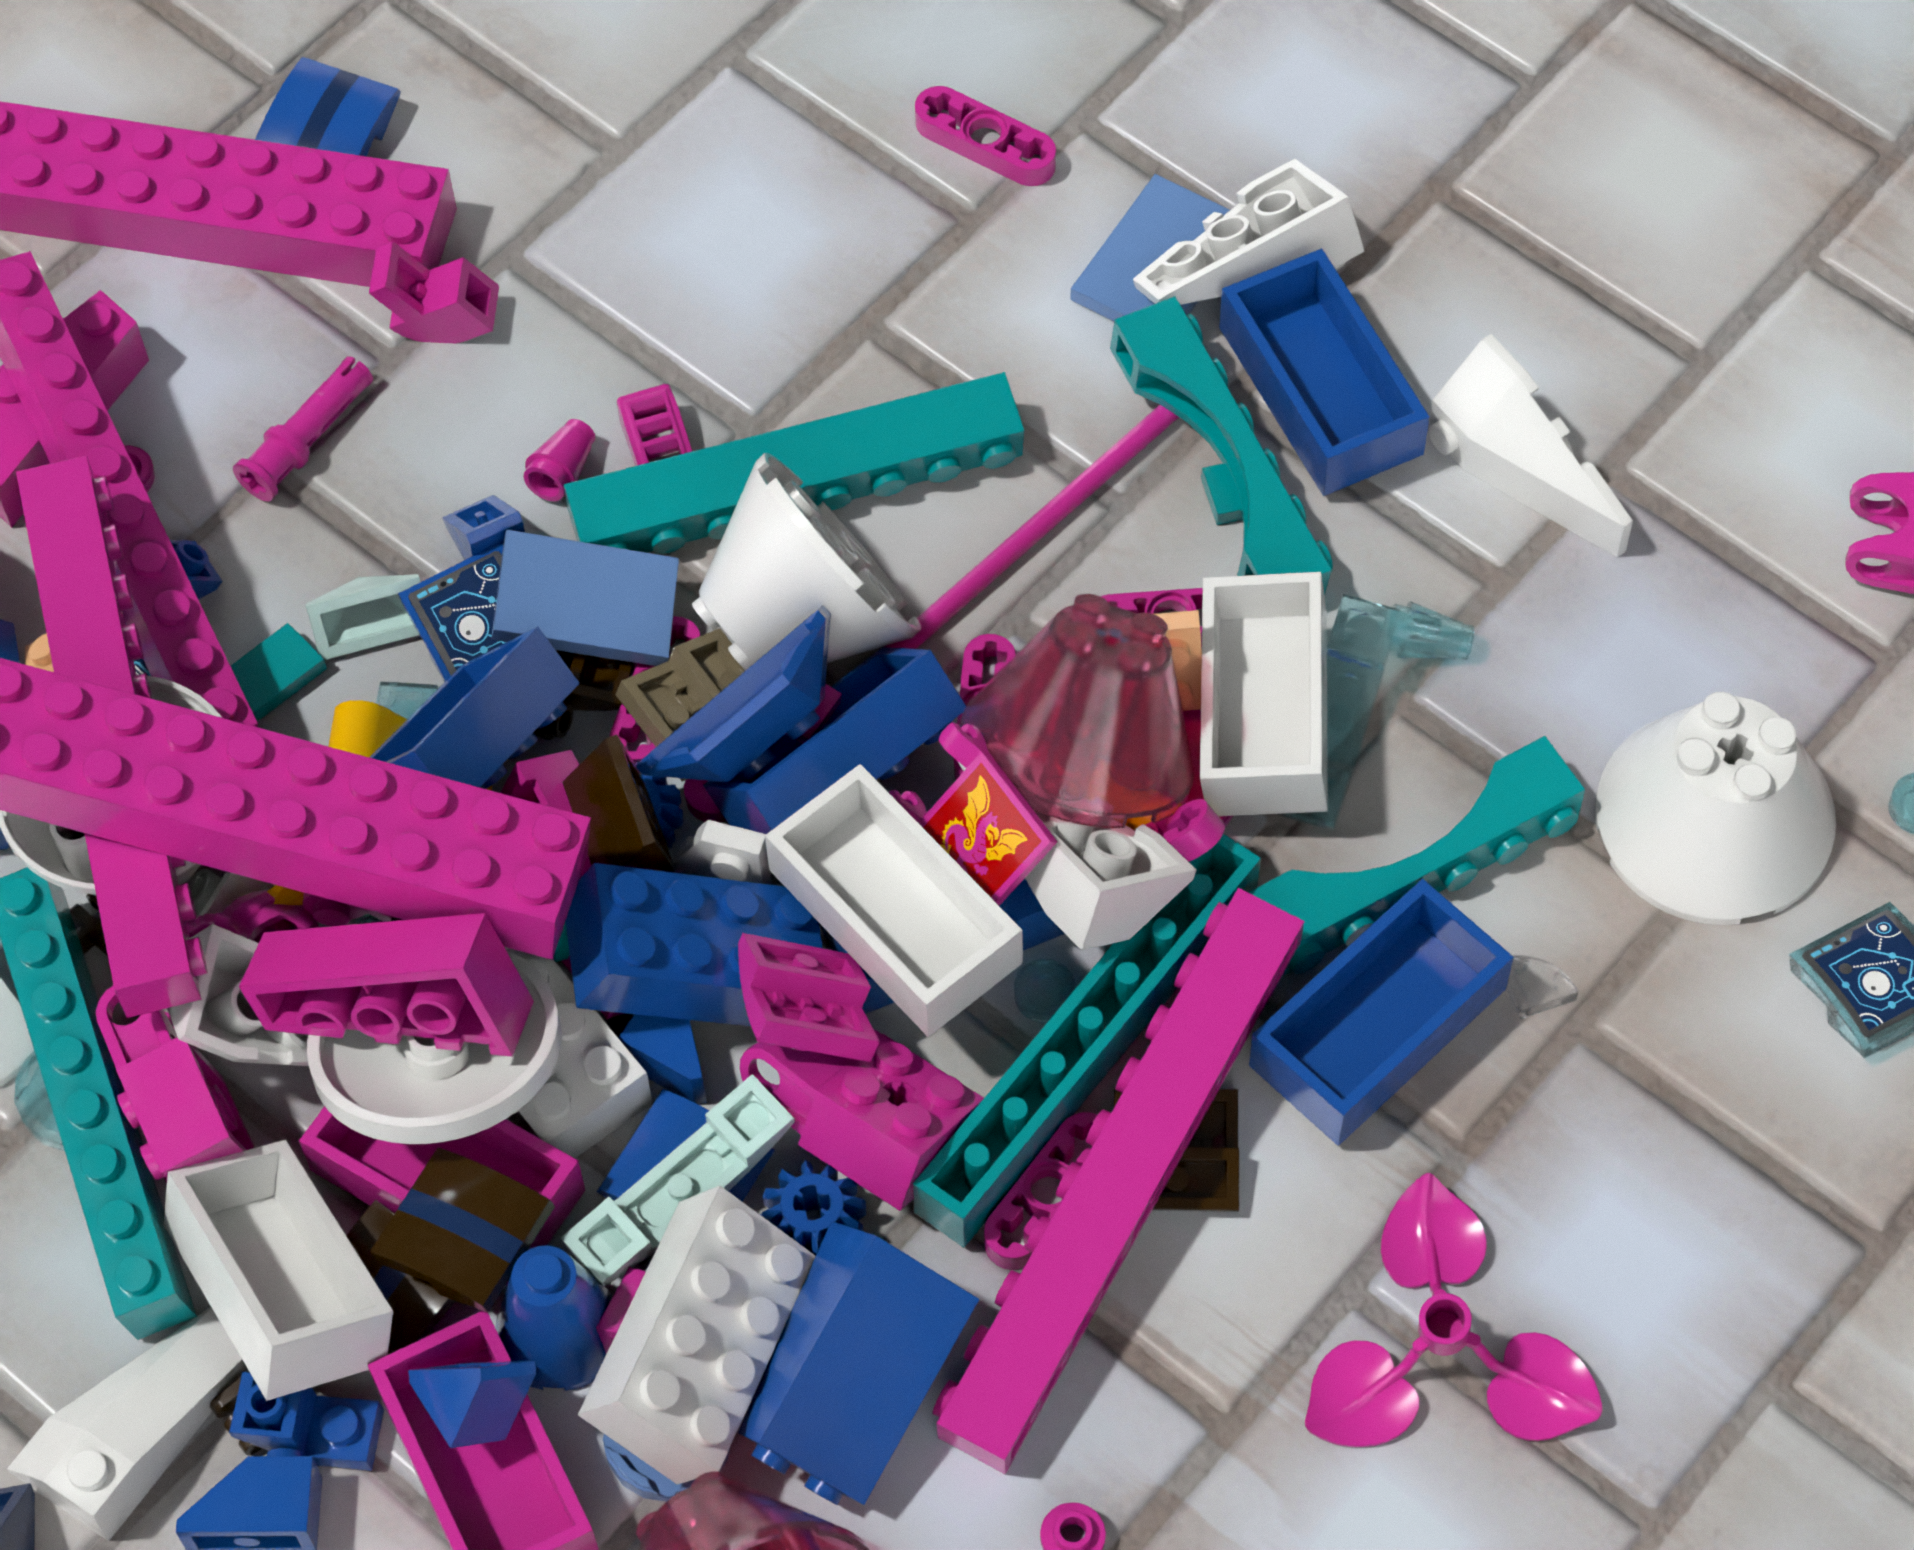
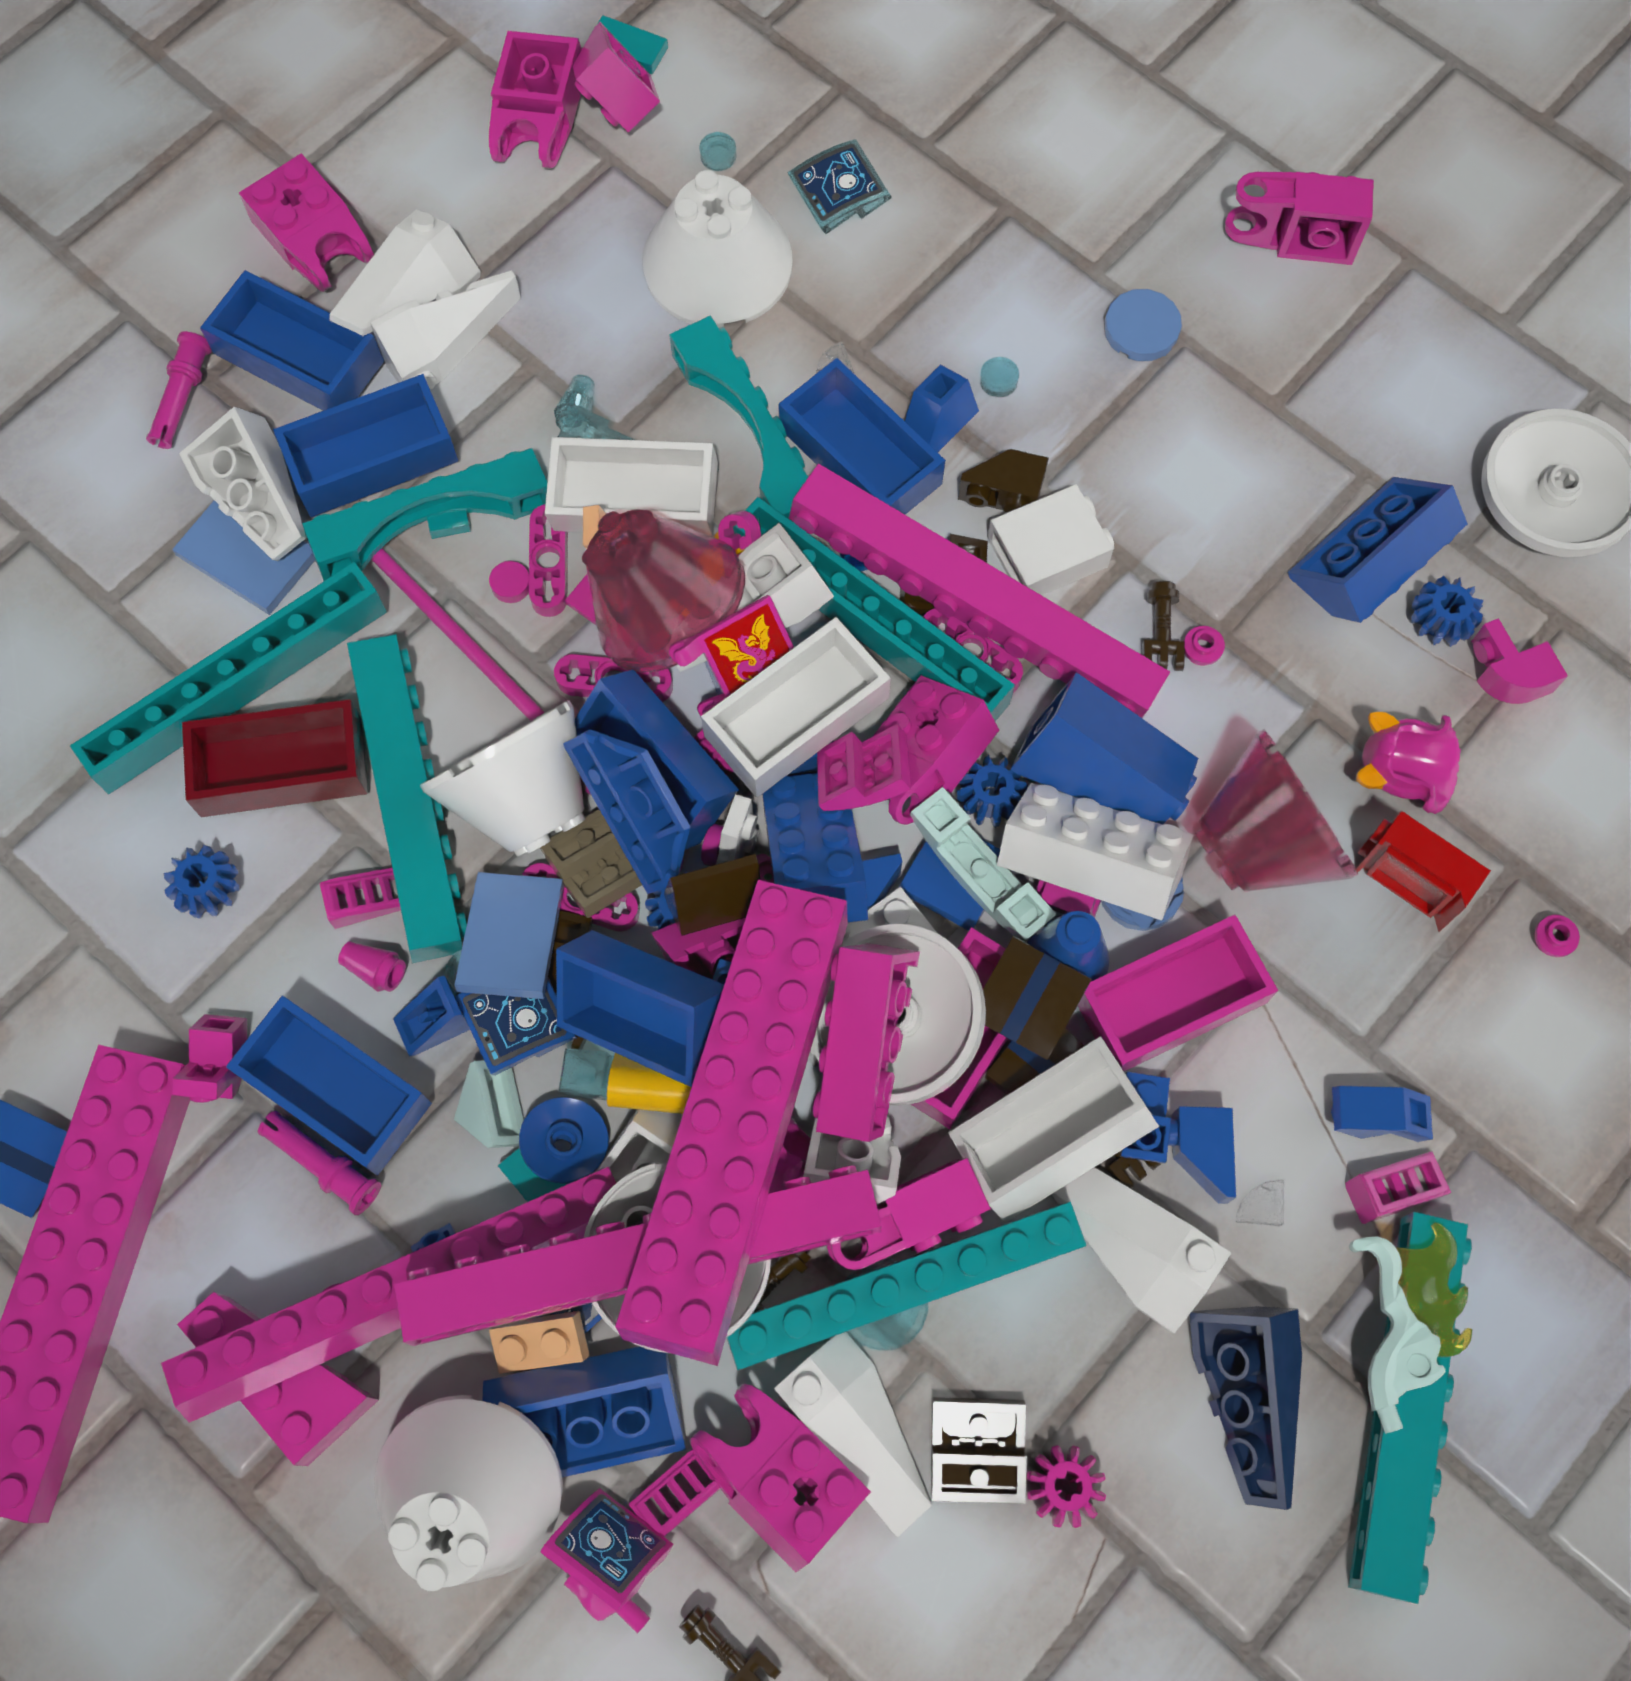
camera: 90 degrees left, 10 degrees up
(304, 666) = (569, 1121): none -> blue dish
(392, 421) = (329, 1085): none -> blue piece
(473, 1399) = (1142, 993): blue slope -> none
(675, 261) = (193, 870): none -> blue gear
(839, 308) = (274, 758): none -> dark red piece
(961, 258) = (229, 677): none -> teal brick
(974, 115) = (117, 681): dark pink beam -> none
(1132, 570) = (509, 582): none -> dark pink tile
(1154, 1471) = (1163, 595): none -> dark brown hinge
(1236, 1299) = (1051, 541): none -> white brick
(1342, 1236) = (1004, 481): none -> dark brown slope
(1365, 1400) = (1099, 391): dark pink plant -> none
(1430, 152) = (183, 374): none -> dark pink pin
(1451, 1125) = (941, 407): none -> blue slope
(1478, 262) = (290, 343): none -> blue piece
(1544, 1230) = (999, 377): none -> clear light blue tile
(1617, 395) = (410, 265): none -> white wedge
(1669, 1455) = (1143, 324): none -> medium blue tile
(1695, 264) = (304, 219): none -> dark pink brick

